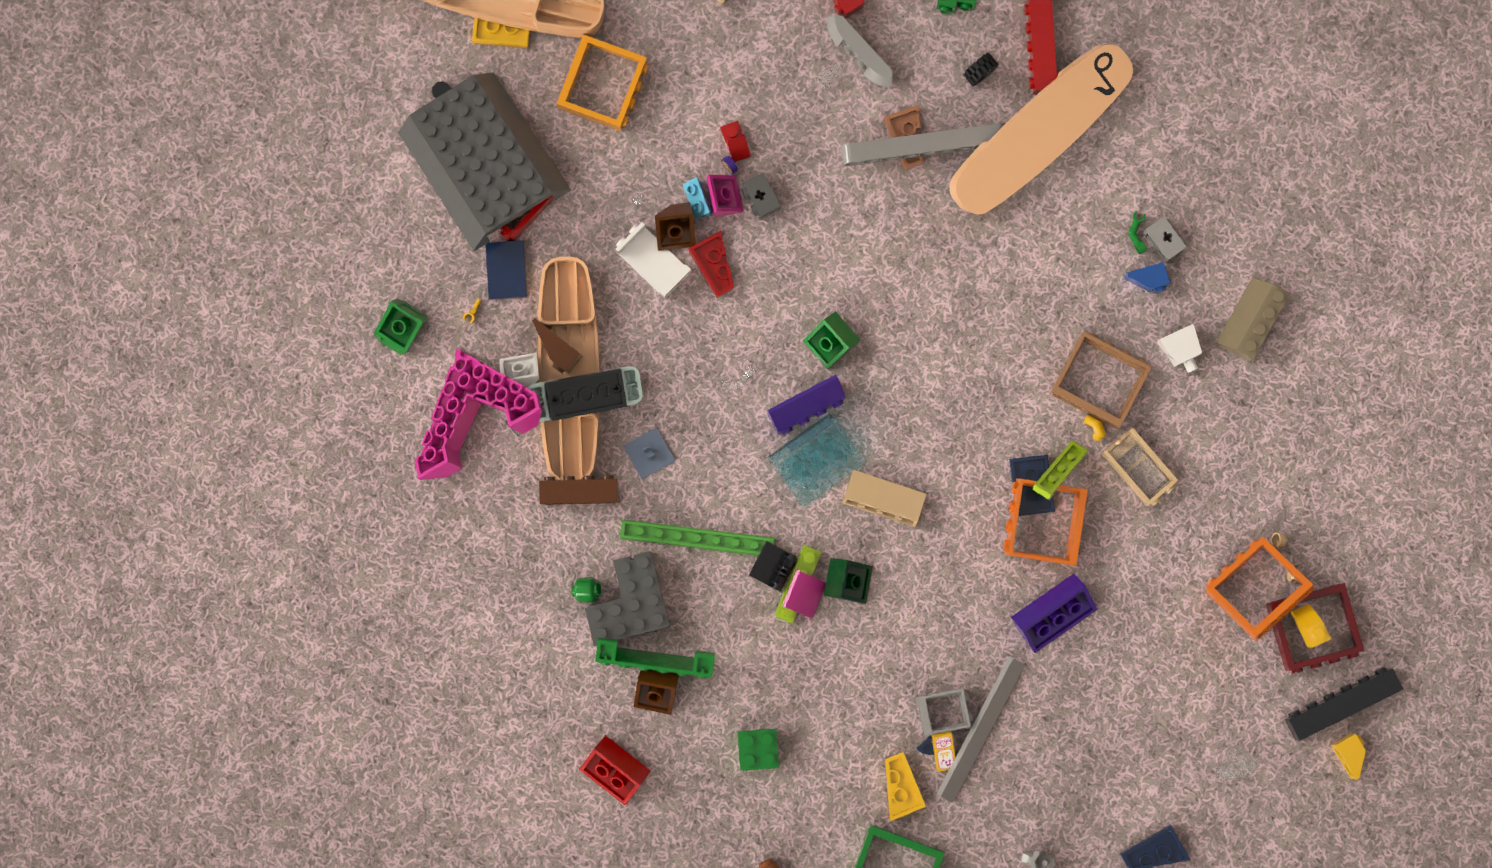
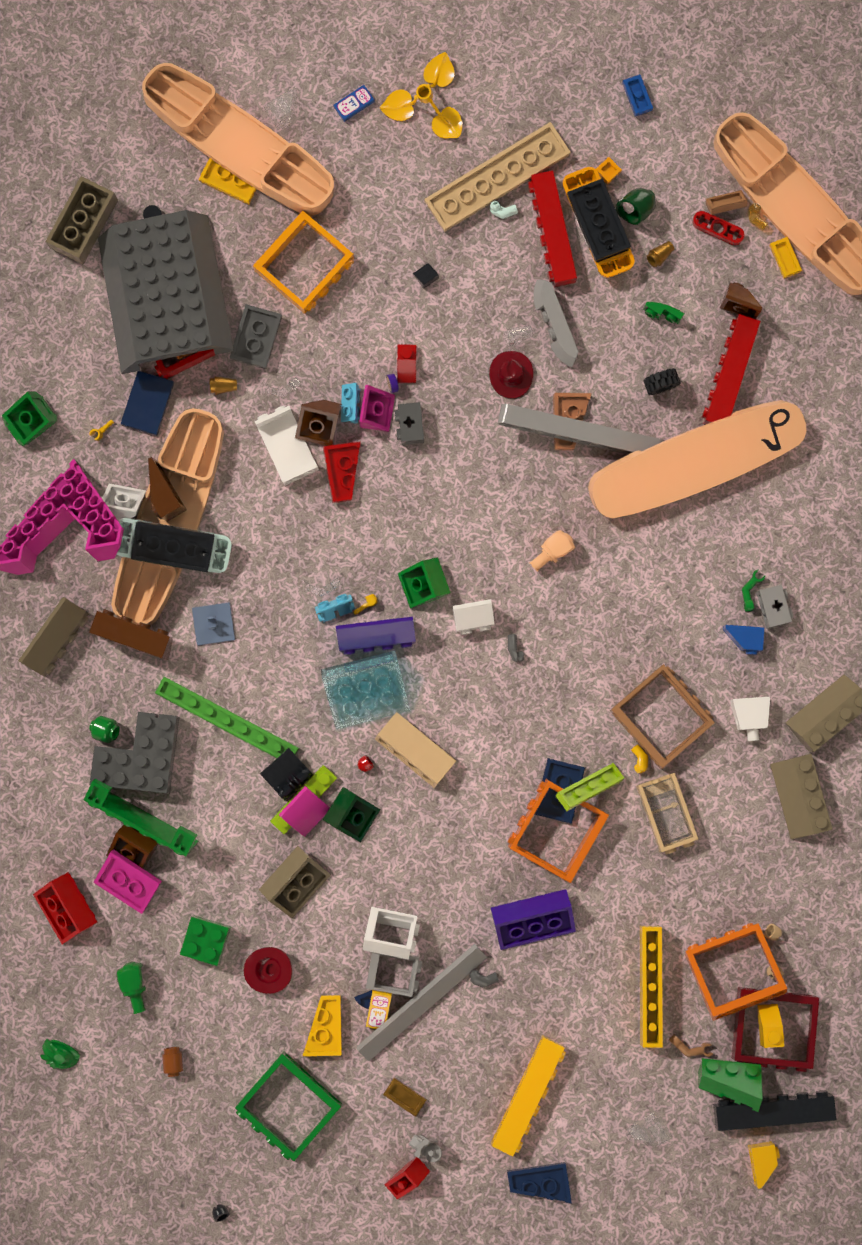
camera: 20 degrees right, 0 degrees up
(377, 121) = (81, 220): none -> dark tan brick
(506, 521) = (54, 637): none -> dark tan slope
(570, 226) = (222, 385): none -> pearl gold cone
(584, 169) = (256, 336): none -> dark grey plate
(664, 722) = (127, 881): none -> dark pink plate
(705, 816) = (130, 984): none -> green piece
(721, 52) = (426, 275): none -> black slope
(762, 388) = (341, 604): none -> medium azure hinge
(788, 375) = (371, 601): none -> yellow hand
(819, 663) = (294, 882): none -> dark tan slope
(827, 754) = (268, 970): none -> dark red hat
(837, 115) = (511, 374): none -> dark red hat
(842, 529) = (365, 764): none -> red hinge
(890, 353) = (473, 616): none -> white slope
(925, 662) = (393, 919): none -> white window
(937, 369) = (512, 648): none -> dark grey arm
(941, 260) = (554, 547): none -> light nougat piece
(998, 822) = (404, 1097): none -> pearl gold tile
(1029, 688) = (481, 980): none -> dark grey arm
(1112, 777) = (527, 1096): none -> yellow brick
(1186, 632) = (651, 987): none -> yellow brick
(1243, 680) = (692, 1051): none -> medium nougat arm
(1256, 405) = (801, 796): none -> dark tan slope
(1295, 689) = (733, 1080): none -> green wedge

